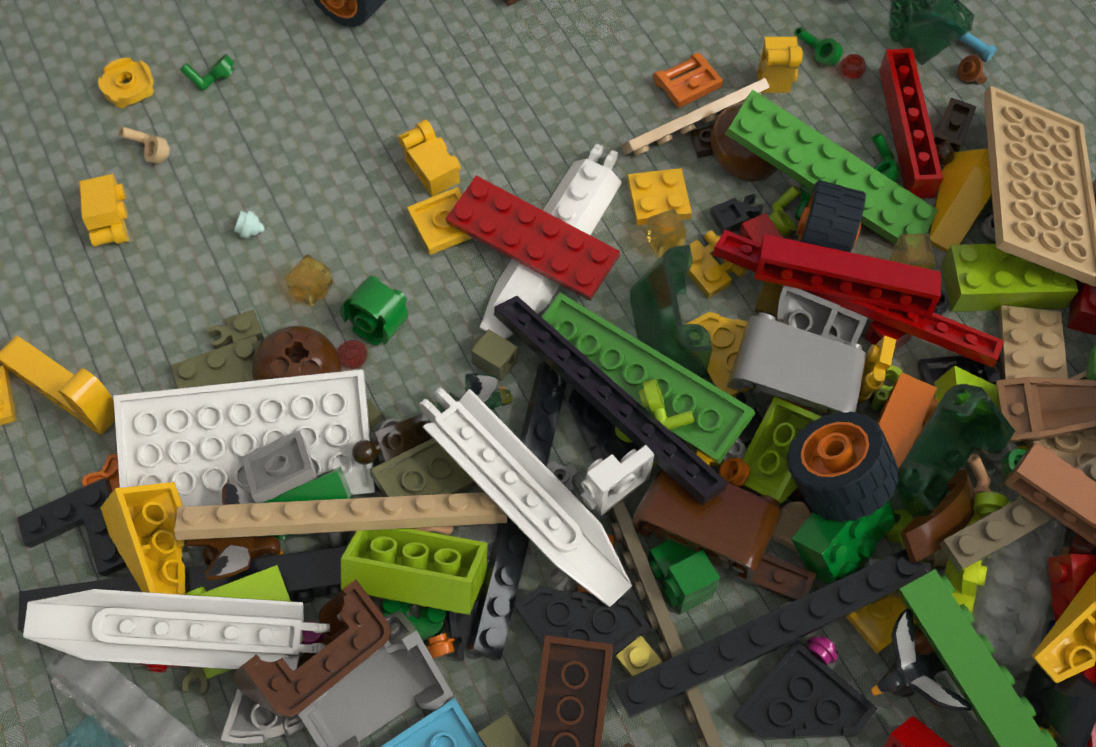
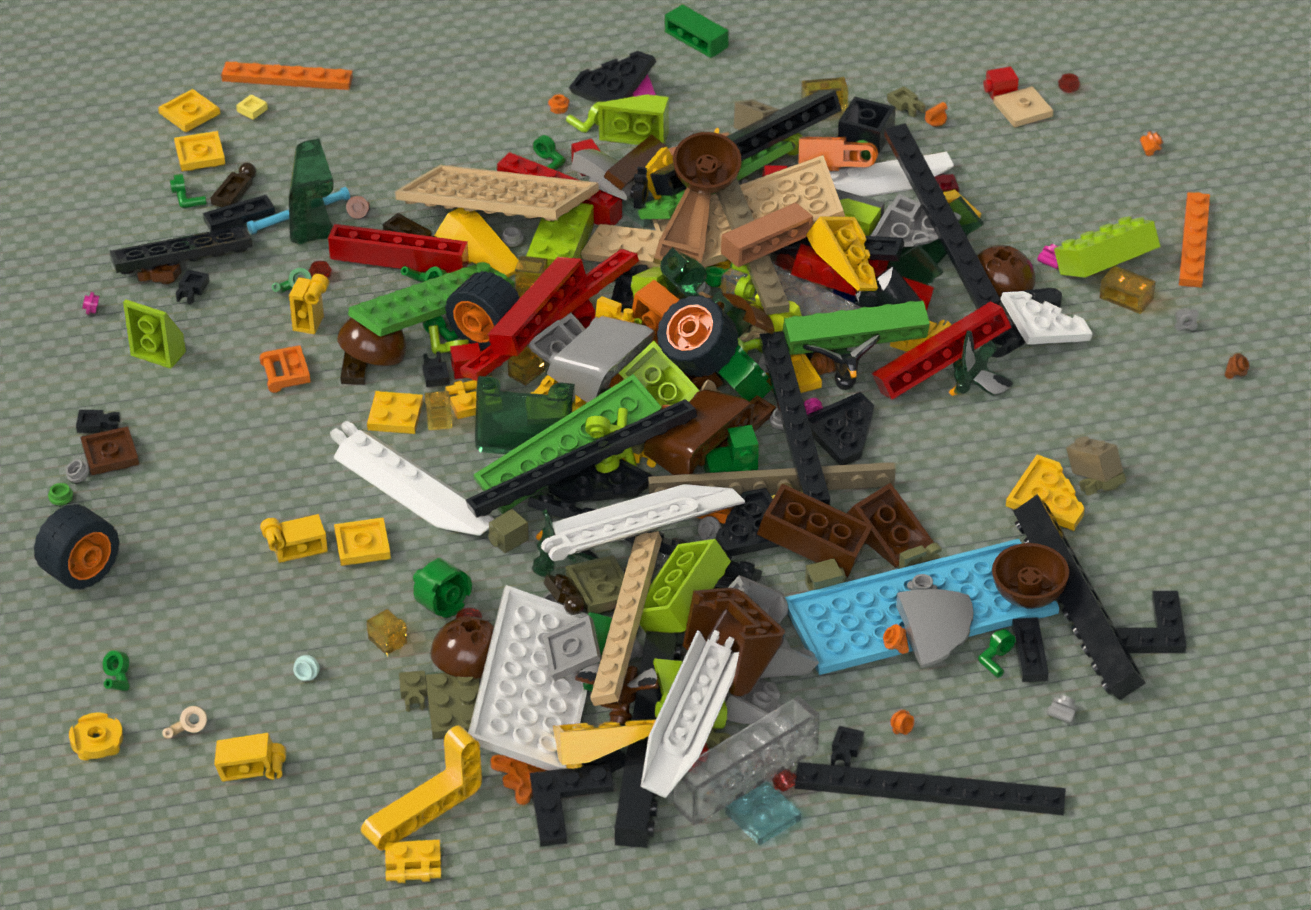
camera: 75 degrees left, 20 degrees down
(533, 237) = (410, 483): red plate -> none
(612, 481) = (658, 460): white plate -> none
(686, 123) = (329, 371): tan plate -> none

